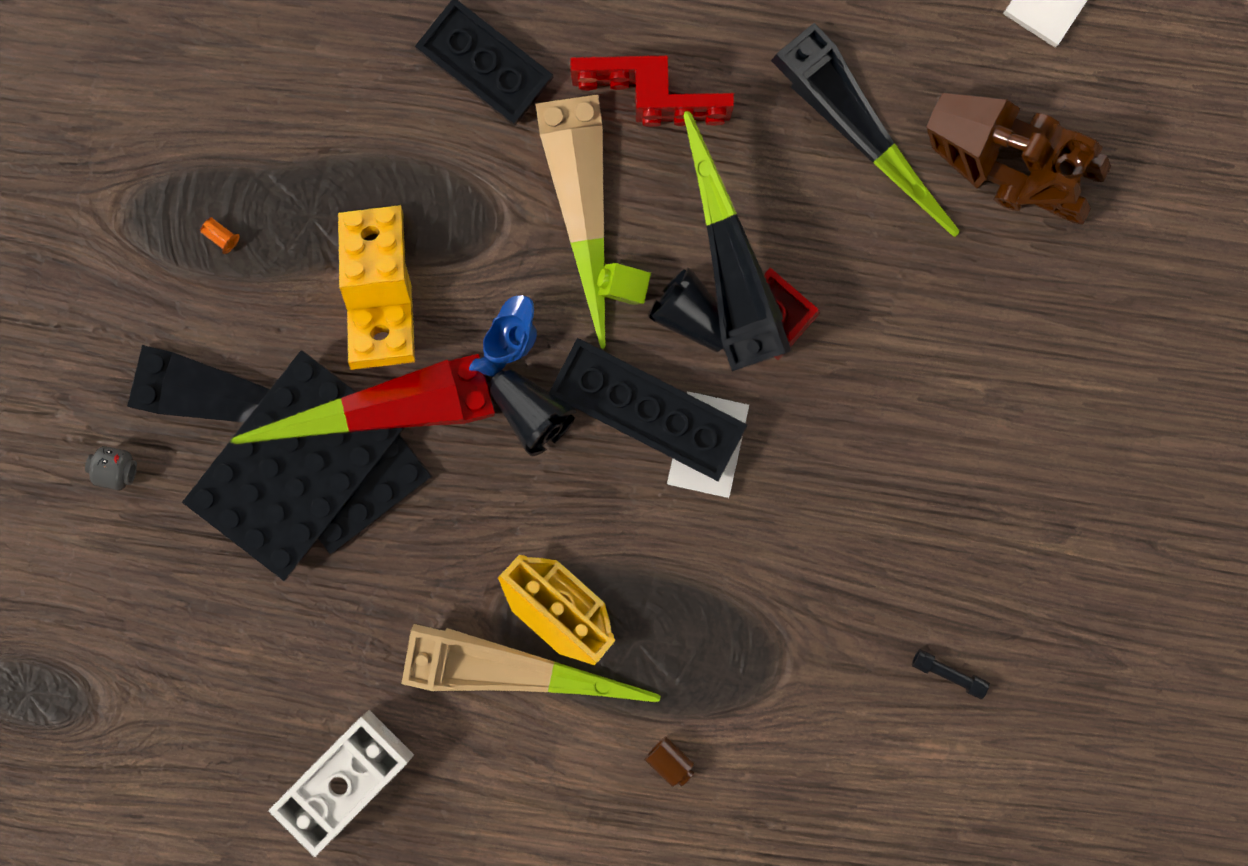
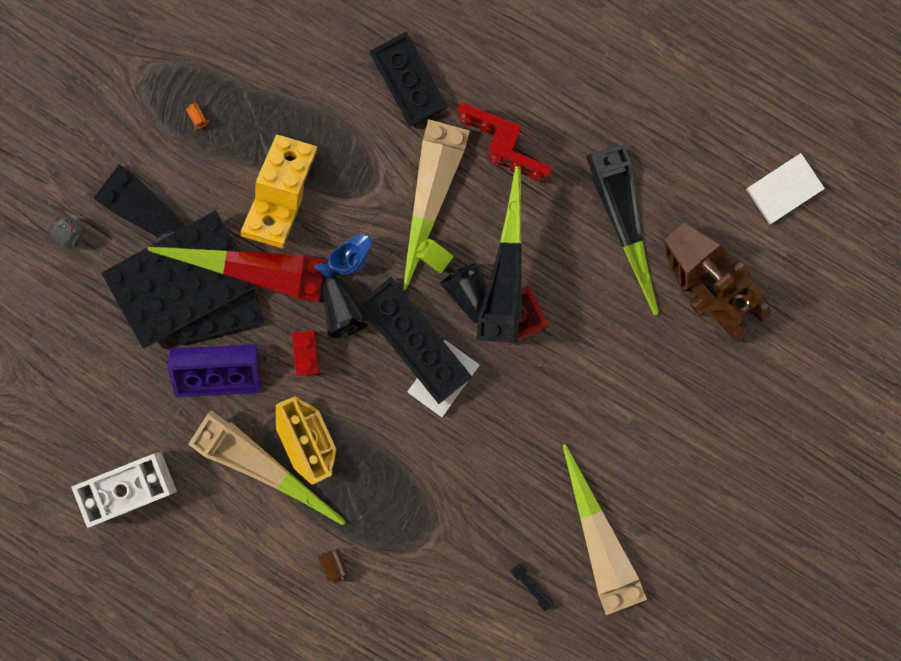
camera: 20 degrees right, 0 degrees up
(394, 568) = (214, 370): none -> dark purple slope
(507, 490) = (306, 353): none -> red brick
(1051, 607) = (613, 573): none -> tan plate

